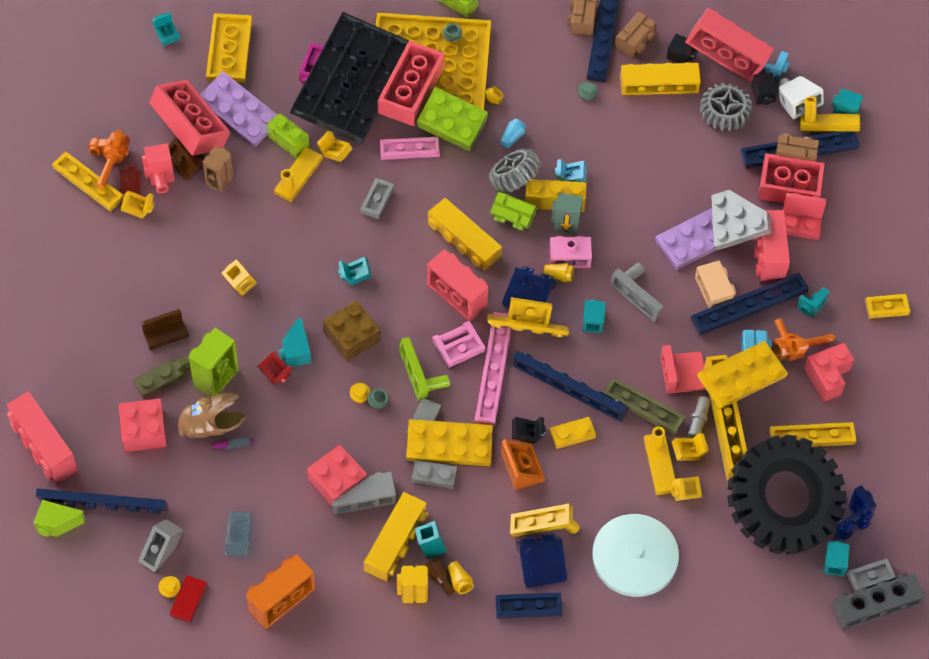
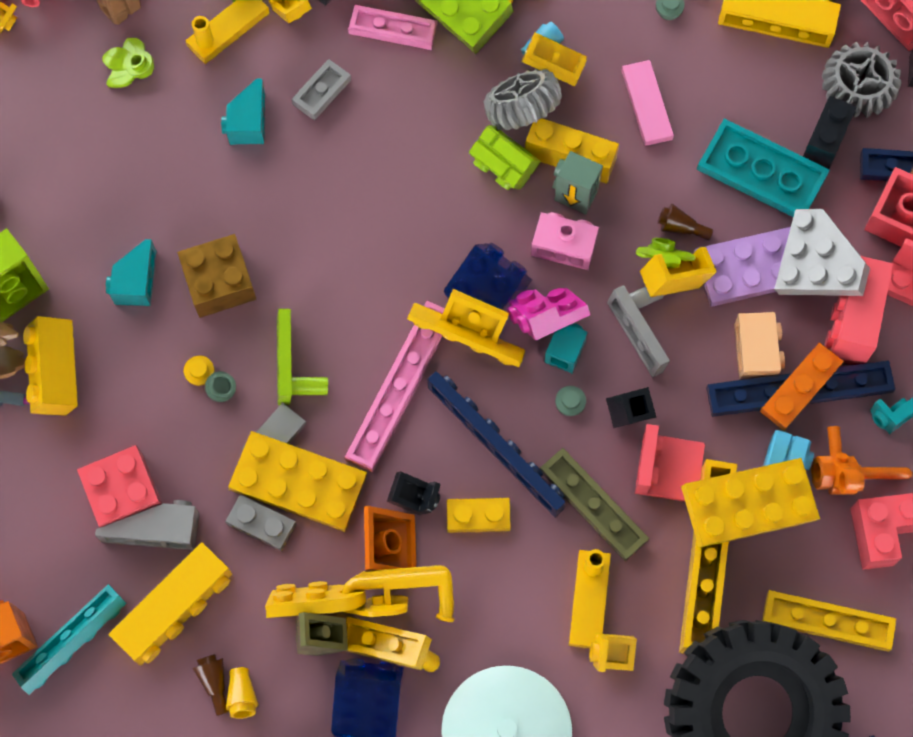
camera: 20 degrees right, 10 degrees up
(238, 213) = (128, 63): none -> lime plate
(239, 277) = (91, 156): yellow brick -> none
(263, 413) = (50, 366): none -> yellow brick
(274, 368) = (93, 303): red bracket -> none
(333, 227) = (246, 116): none -> teal slope
(336, 575) = (68, 639): none -> teal plate
(355, 271) = (253, 188): teal bracket -> none
(413, 584) = (166, 689): yellow brick -> none
(431, 540) = (216, 626): teal brick -> none
(457, 285) = (385, 248): coral brick -> none
(459, 349) = (361, 344): bright pink plate -> none
(464, 234) = (423, 174): yellow brick -> none
(498, 526) = (320, 634): none -> olive slope
(513, 494) = (351, 597): none -> yellow plate
(518, 139) = (554, 57): none -> yellow hinge
(561, 272) = (541, 266): yellow cone -> none
(571, 172) = (604, 121): medium azure bracket -> none
(574, 298) = (547, 314): none -> dark pink plate
(593, 155) = (647, 103): none -> bright pink tile
(607, 349) = (570, 401): none -> sand green plate
(636, 243) = (667, 248): none -> lime plate
(637, 222) = (677, 221): none -> reddish brown cone
(648, 341) = (631, 407): none -> black brick
(651, 254) = (688, 276): none -> yellow panel
(681, 177) = (762, 169): none -> teal plate
(690, 448) = (639, 589): yellow bracket -> none
(699, 417) = (669, 545): light grey pin -> none
(716, 144) = (829, 132): none -> black brick
(750, 301) = (801, 386): none -> orange plate

